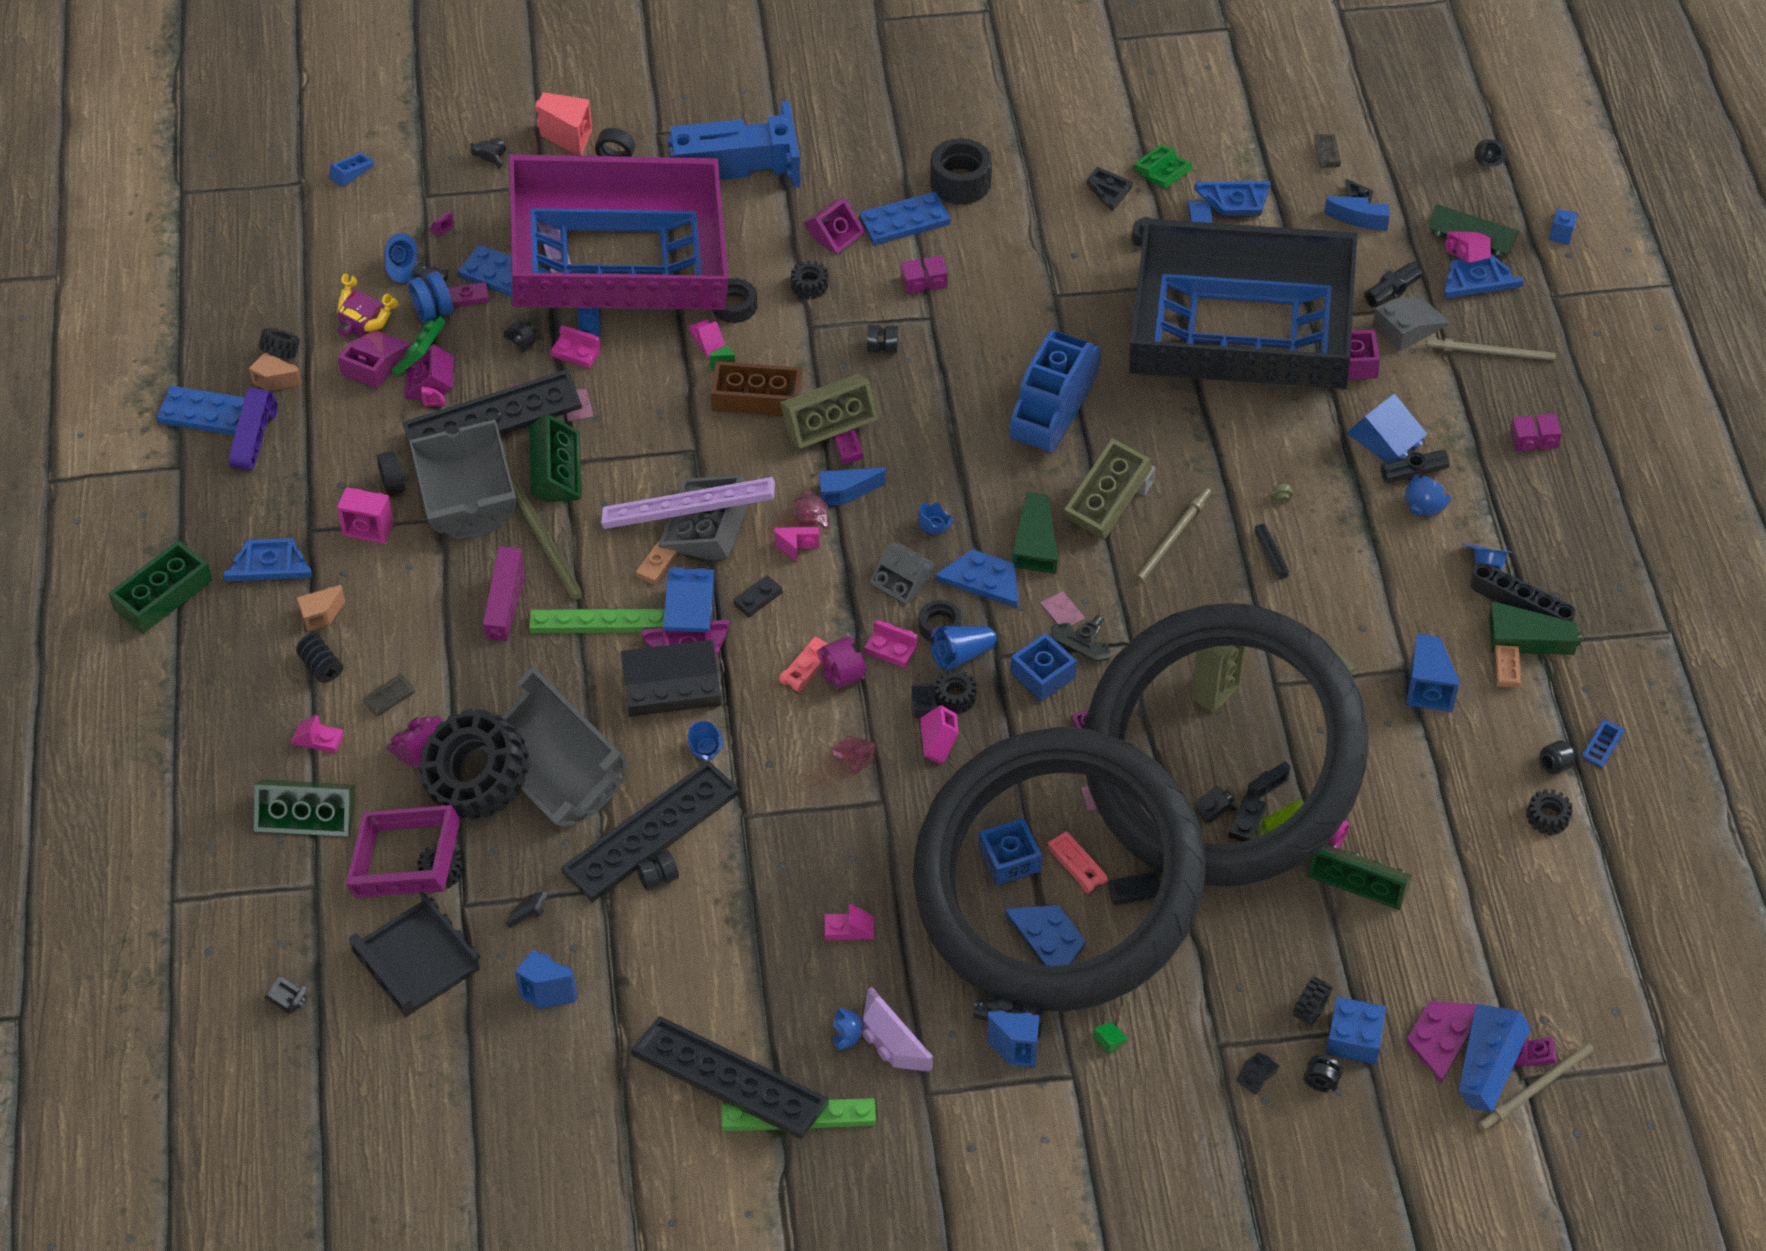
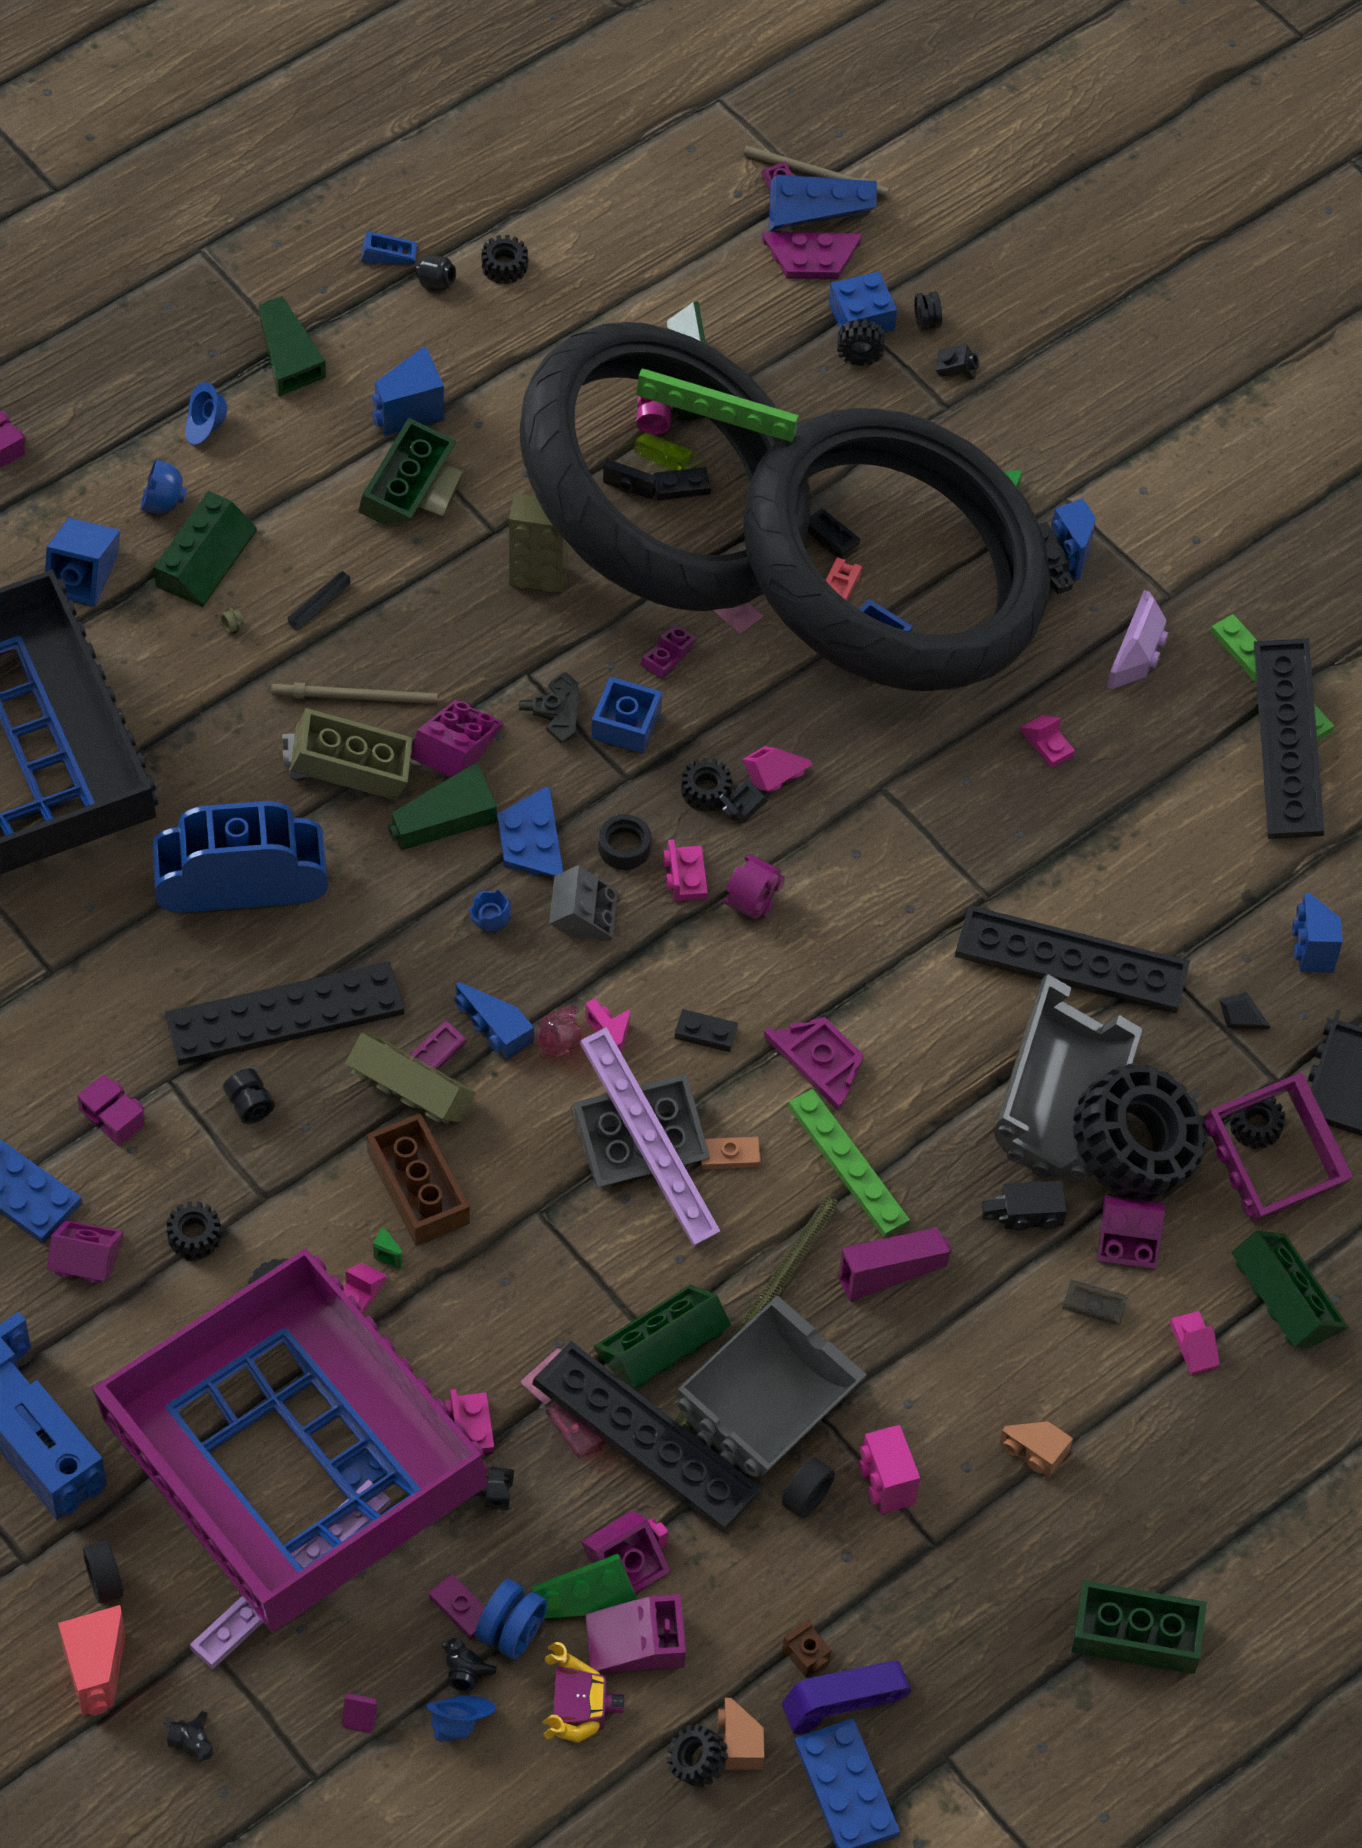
camera: 125 degrees left, 5 degrees up
(268, 560) = (1014, 1549): blue wing -> none
(297, 430) = (807, 1660): none -> reddish brown brick
(318, 658) = (1105, 1396): black piece -> none
(486, 690) = (1028, 1205): none -> black hinge
(490, 267) = (399, 1596): blue plate -> none
(657, 870) = (1109, 916): black wheel -> none
(671, 678) = (883, 1036): black slope -> none
(689, 600) = (773, 1074): blue slope -> none
(704, 740) = (935, 966): blue hair -> none
(804, 666) = (765, 936): coral plate -> none
(849, 1028) = (1165, 676): blue hair -> none
(856, 751) = (850, 826): clear pink slope -> none
(936, 390) = (284, 1013): none -> black plate
(960, 644) = (650, 798): blue cone -> none
(1047, 933) = (935, 577): blue wing -> none
(1062, 609) = (524, 750): clear pink sticker -> none
(1094, 569) = (454, 738): none -> magenta slope
(1215, 803) = (685, 510): black bracket -> none
(1236, 746) = (717, 405): none -> bright green plate
(1354, 638) = (405, 473): none -> dark green slope
(1357, 502) = (204, 549): none -> dark green slope
(1414, 464) = (116, 516): black piece -> none
(1507, 666) = (345, 350): nougat plate -> none
(1517, 593) = (244, 368): black beam -> none

